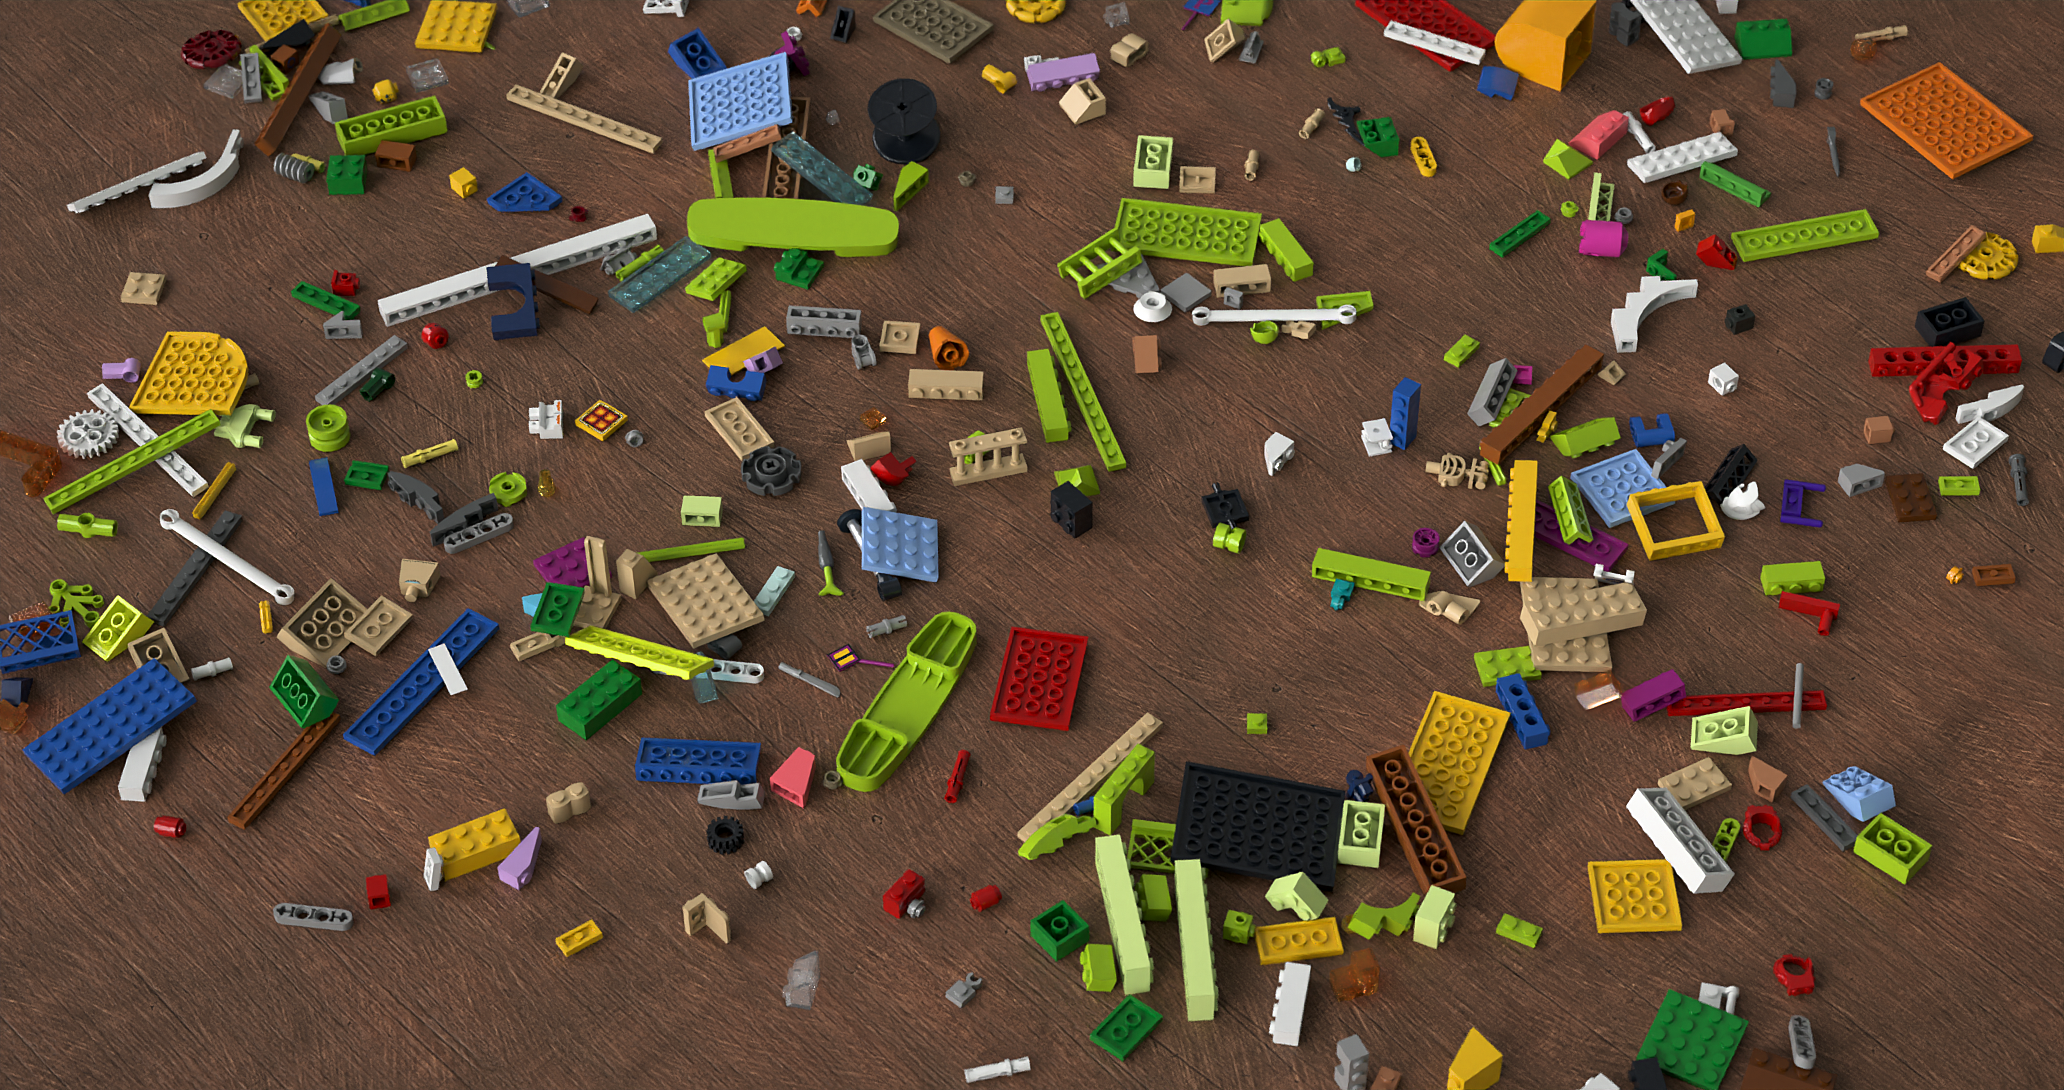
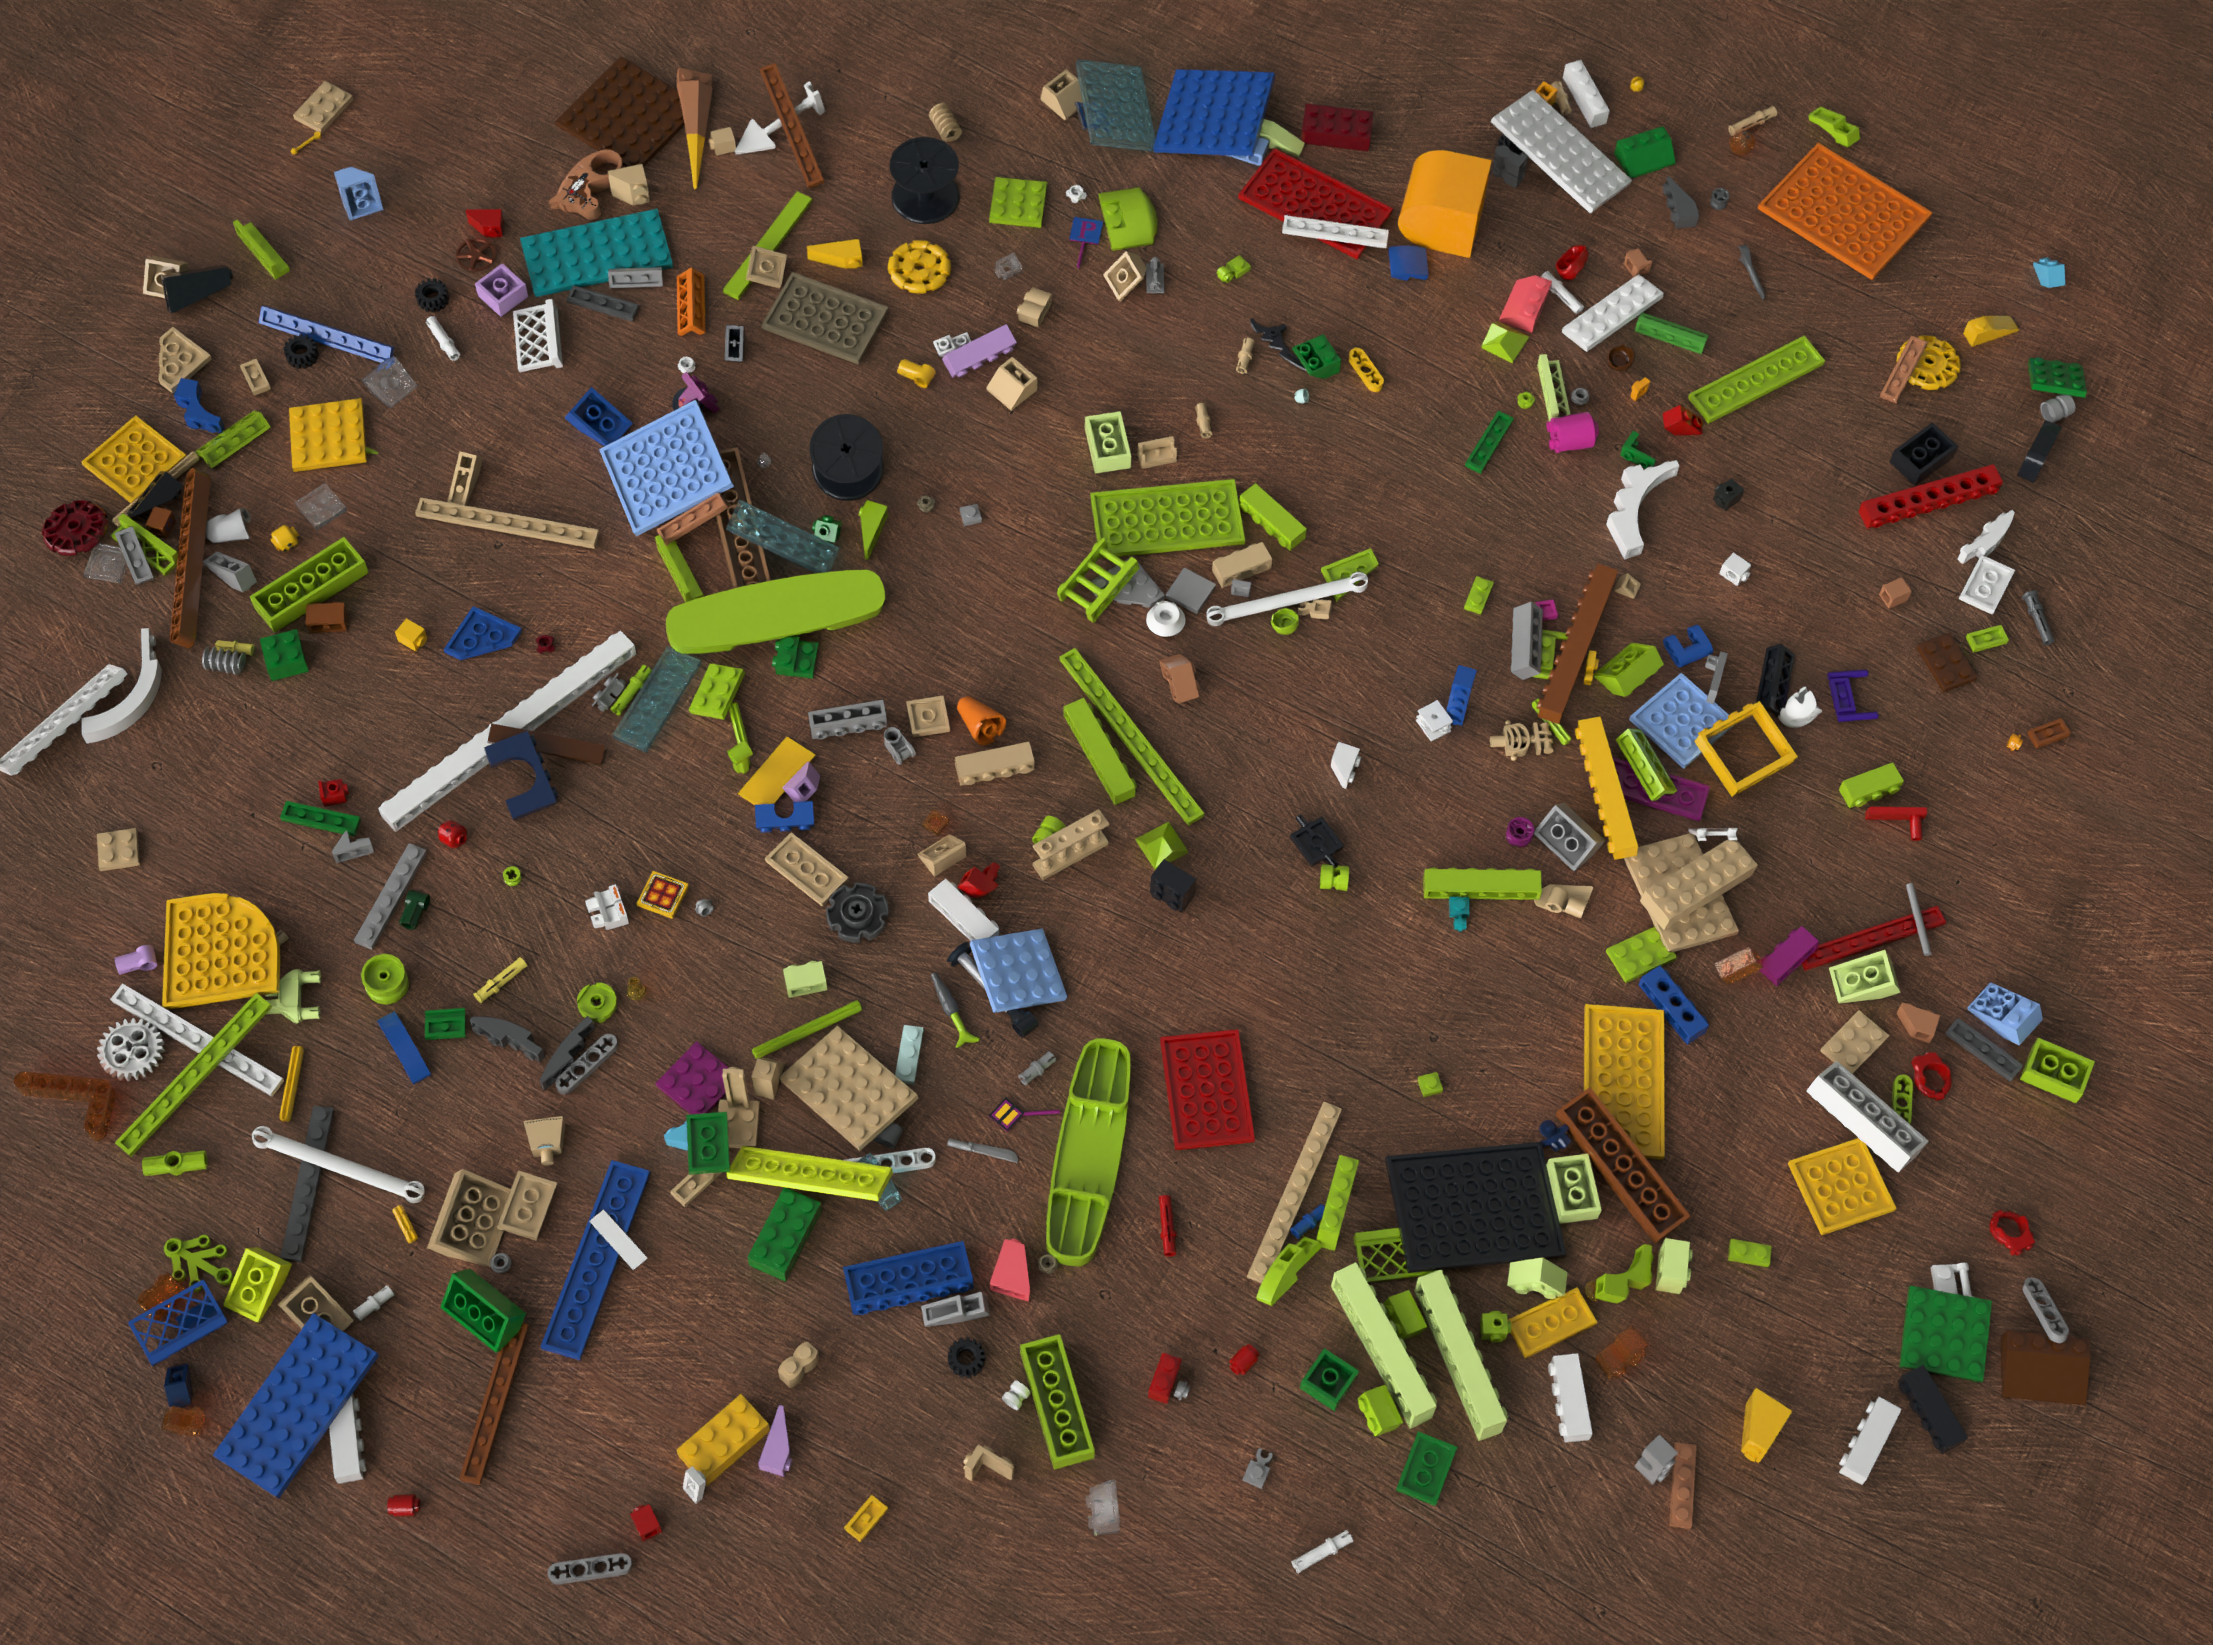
camera: 20 degrees left, 15 degrees up
(793, 887) = (1057, 1401): none -> lime brick
(1859, 479) = (1895, 654): light grey slope -> none
(1929, 389) = (1928, 533): red piece -> none
(1963, 53) = (1836, 126): none -> lime slope

